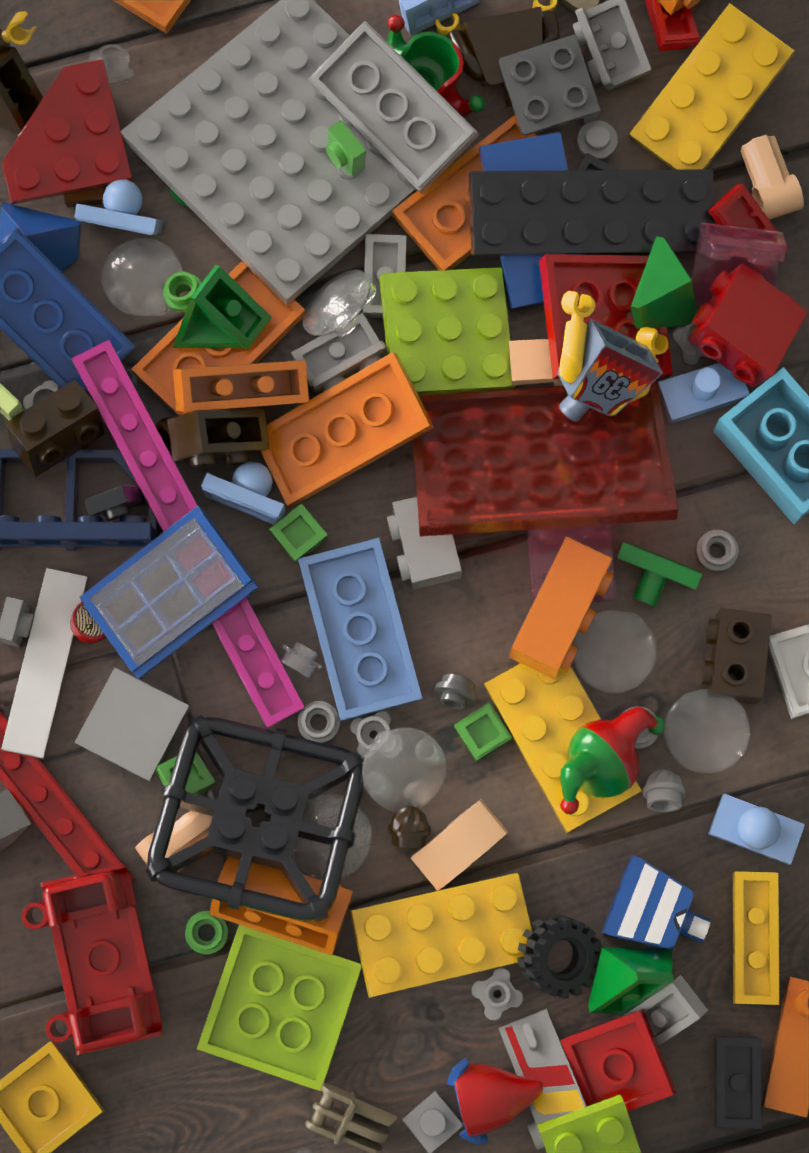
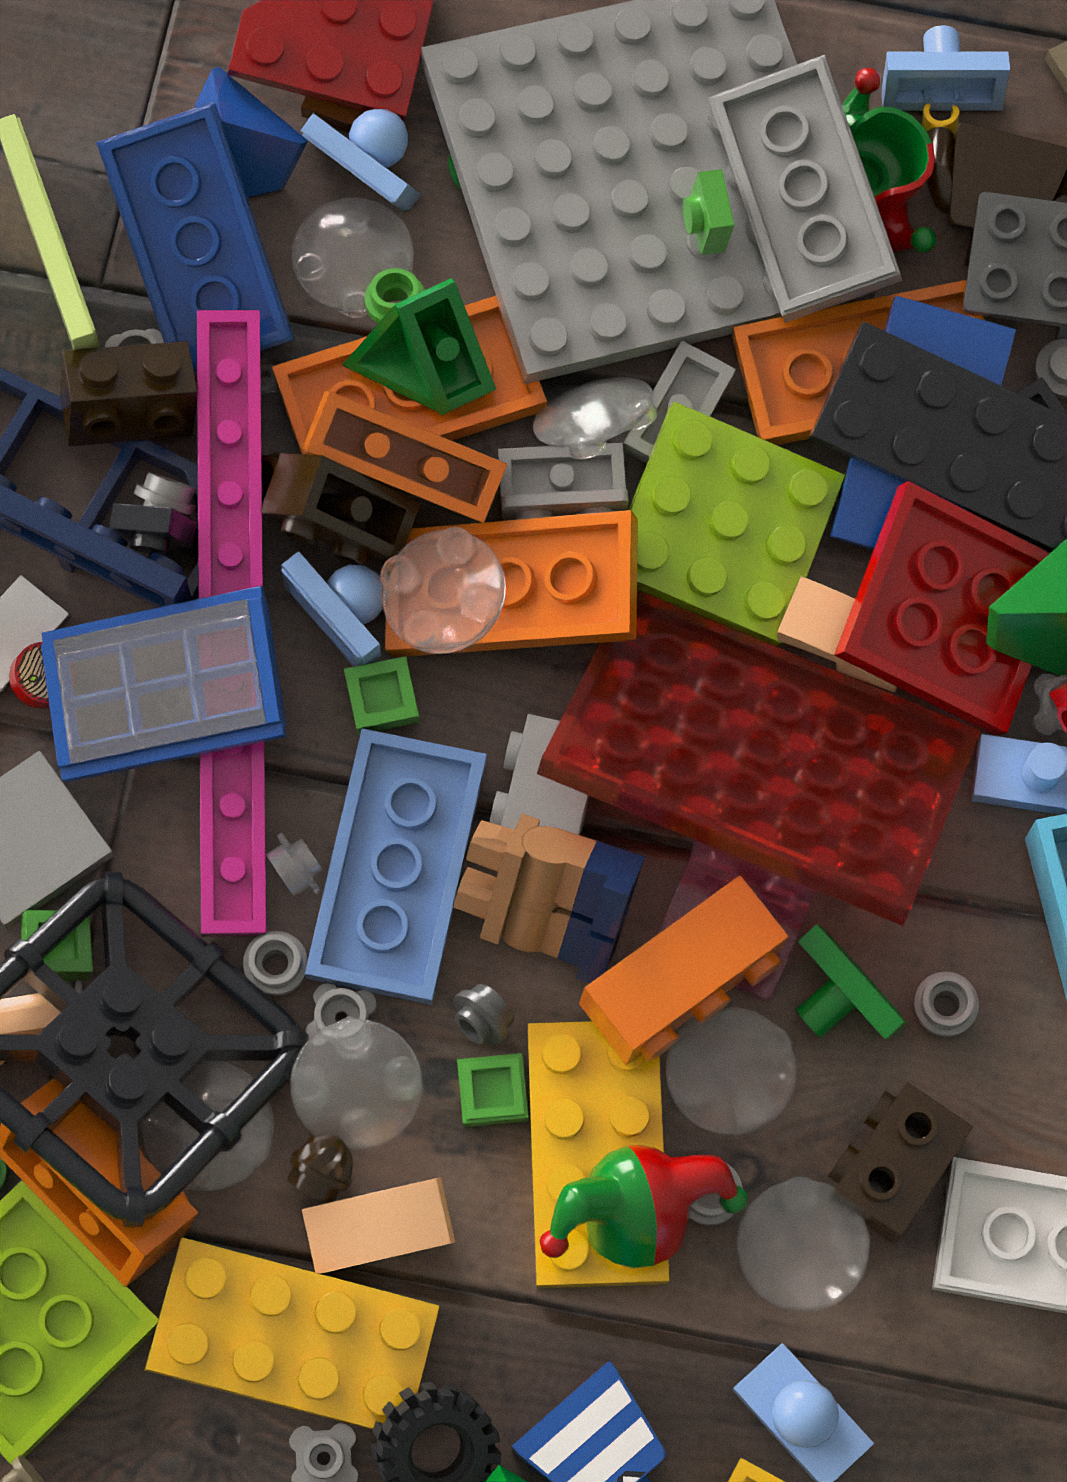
camera: 20 degrees right, 5 degrees down
(109, 477) = (166, 492): none -> light grey plate
(305, 454) = (443, 591): none -> clear dish
(461, 601) = (550, 892): none -> medium nougat hips
(602, 365) = (908, 666): torso -> none
(664, 791) = (699, 1297): light grey plate -> none

